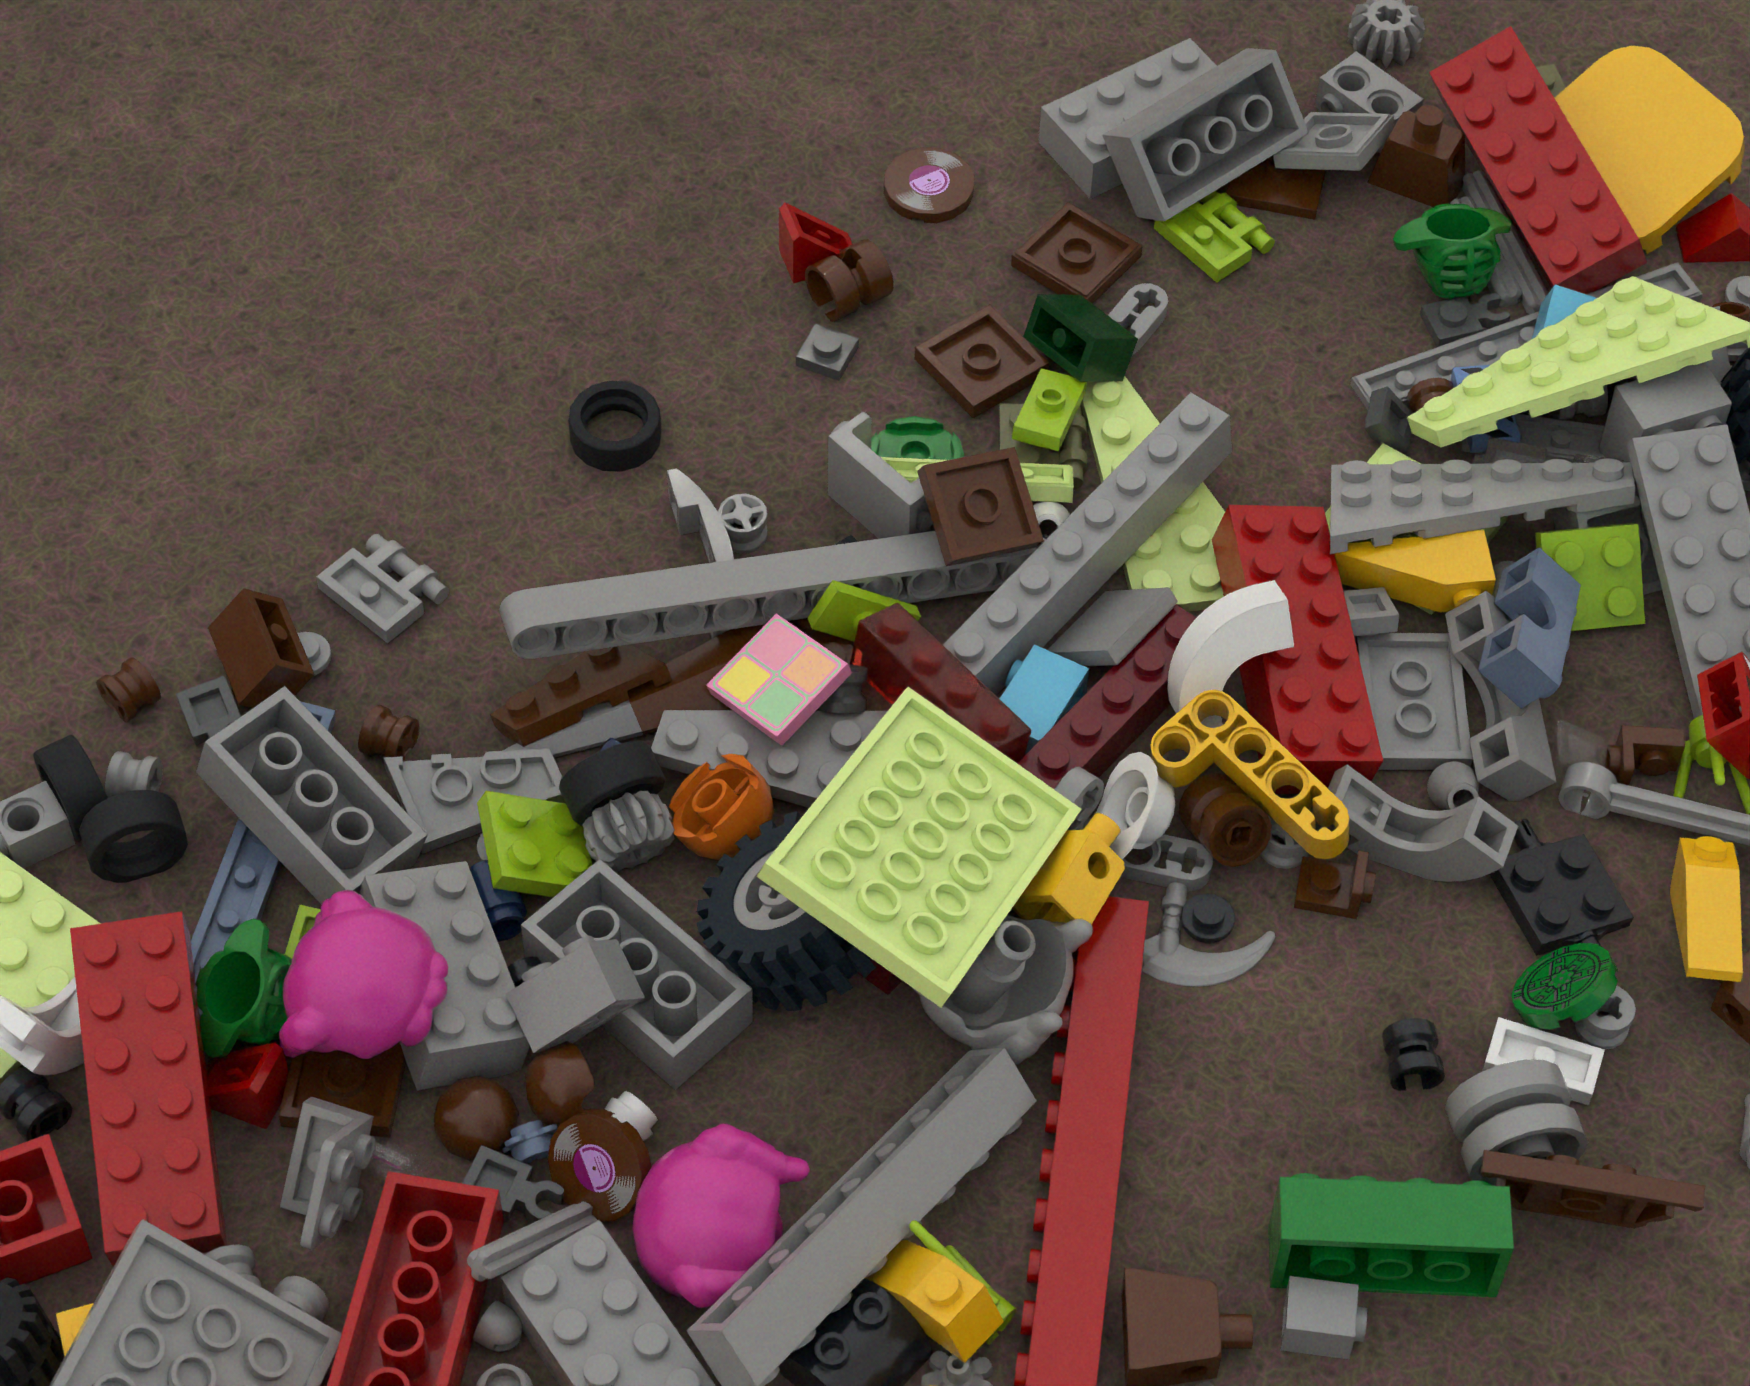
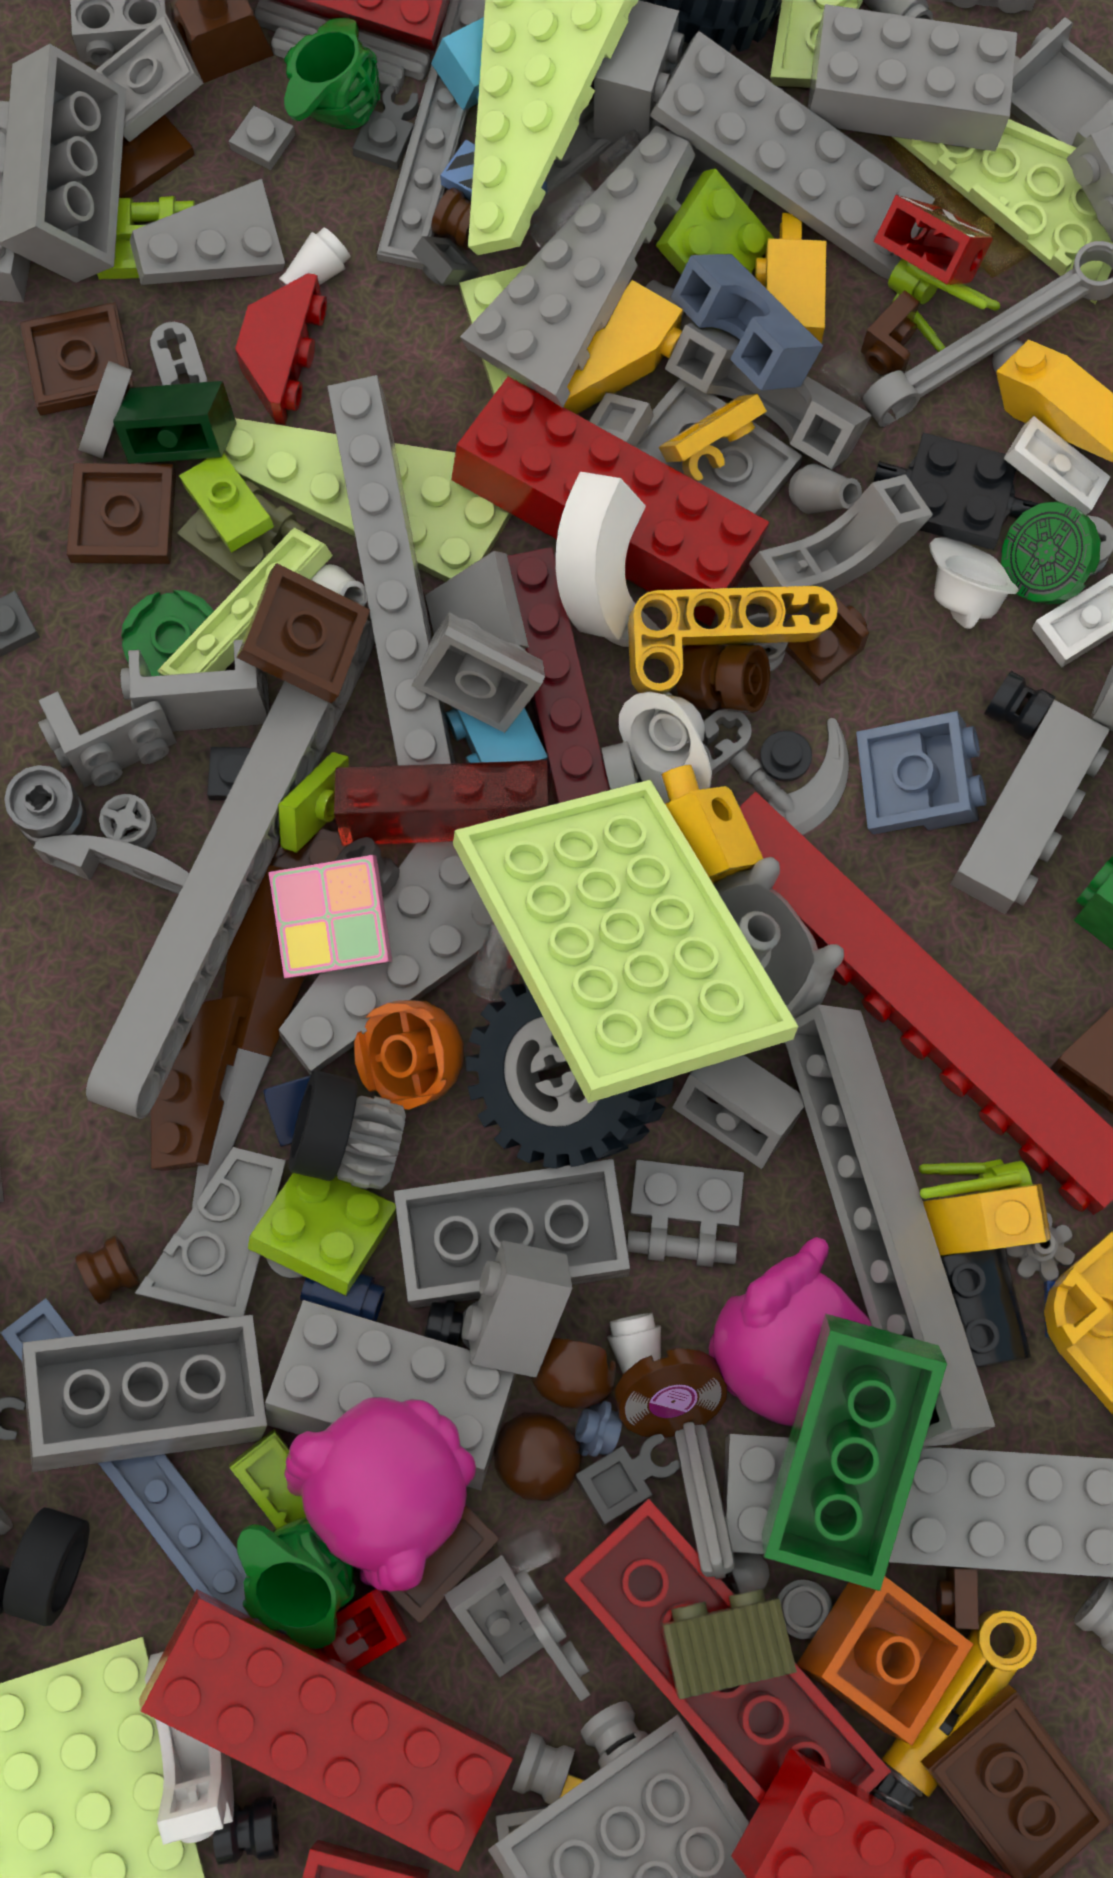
camera: 50 degrees left, 20 degrees up
(423, 1306) = (727, 1644): none -> olive brick
(644, 1272) = (853, 1451): none -> green brick
(708, 455) = (44, 804): none -> flat silver wheel
(774, 1083) = (690, 1196): none -> light grey plate
(790, 463) = (109, 748): none -> light grey bracket
(879, 1062) = (746, 1101): none -> light grey brick
(1057, 632) = (479, 672): none -> light grey slope
(1067, 279) = (105, 409): none -> light grey beam
(1211, 362) = (277, 343): none -> red slope
(1249, 267) = (211, 240): none -> light grey wing
(1282, 1020) = (920, 774): none -> sand blue plate
(1301, 344) = (319, 255): none -> white cone
(1330, 1119) = (1030, 808): none -> light grey brick
(1371, 248) = (262, 137): none -> light grey plate
(1443, 681) = (728, 422): none -> yellow plate
(1484, 943) = (969, 581): none -> white piece
(1614, 660) = (796, 274): none -> yellow hinge
(1649, 946) = (1056, 466): none -> white plate

